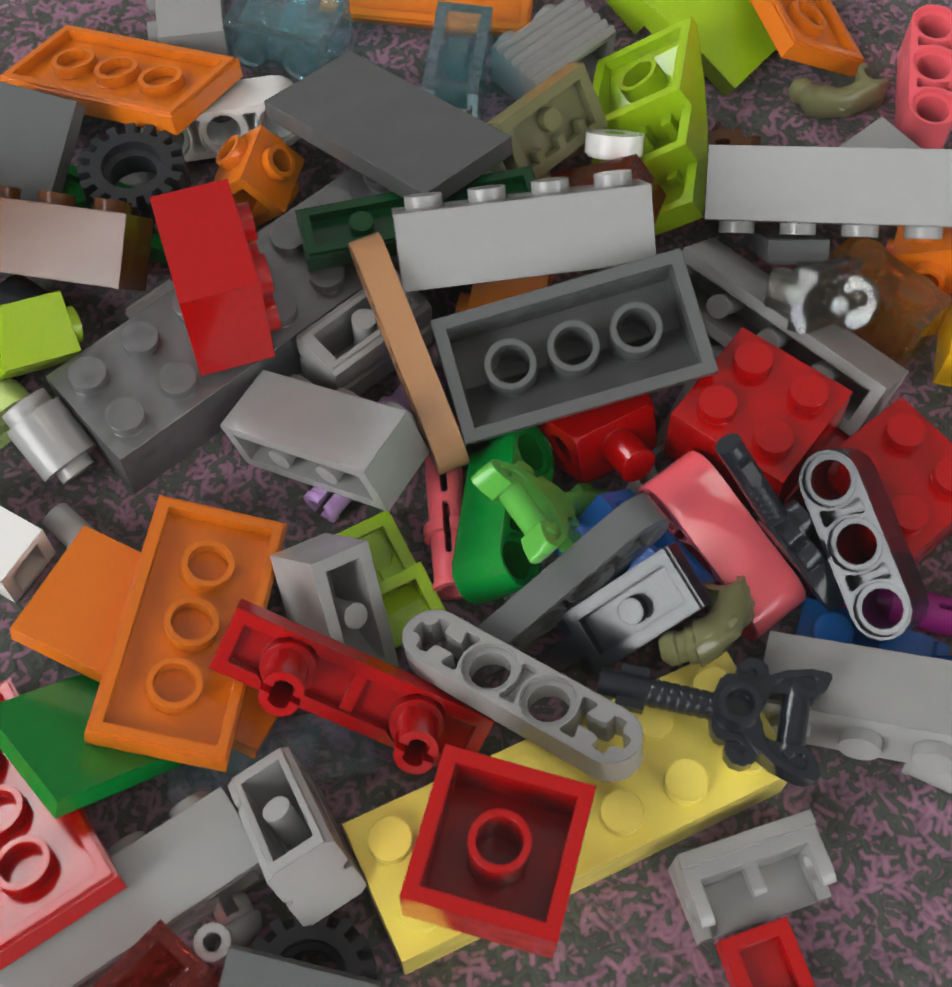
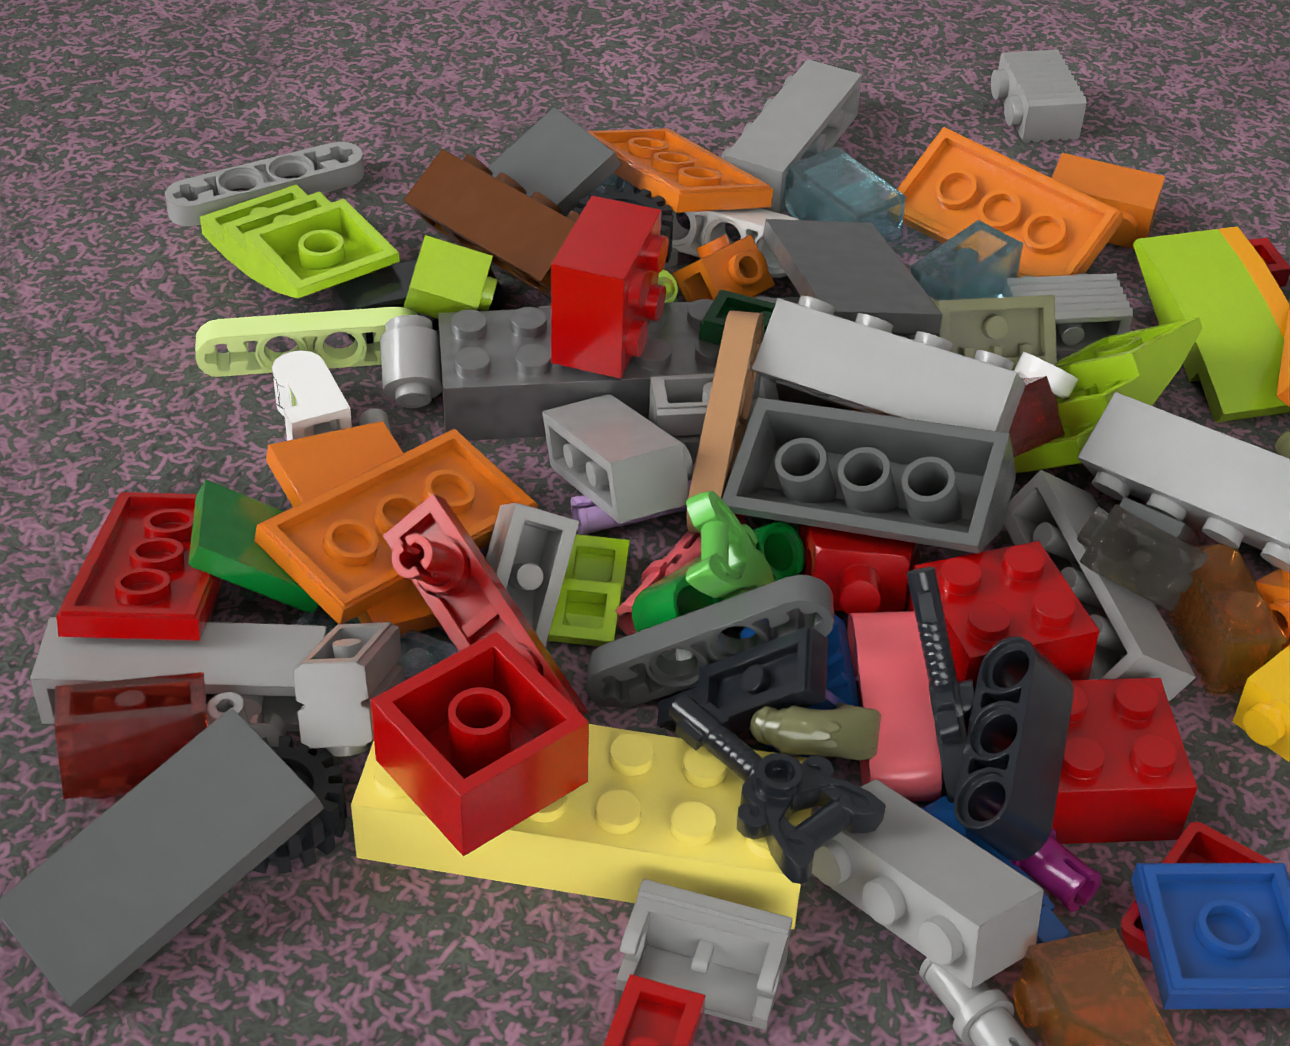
camera: 35 degrees right, 20 degrees down
(526, 684) = (603, 670): light grey beam -> none

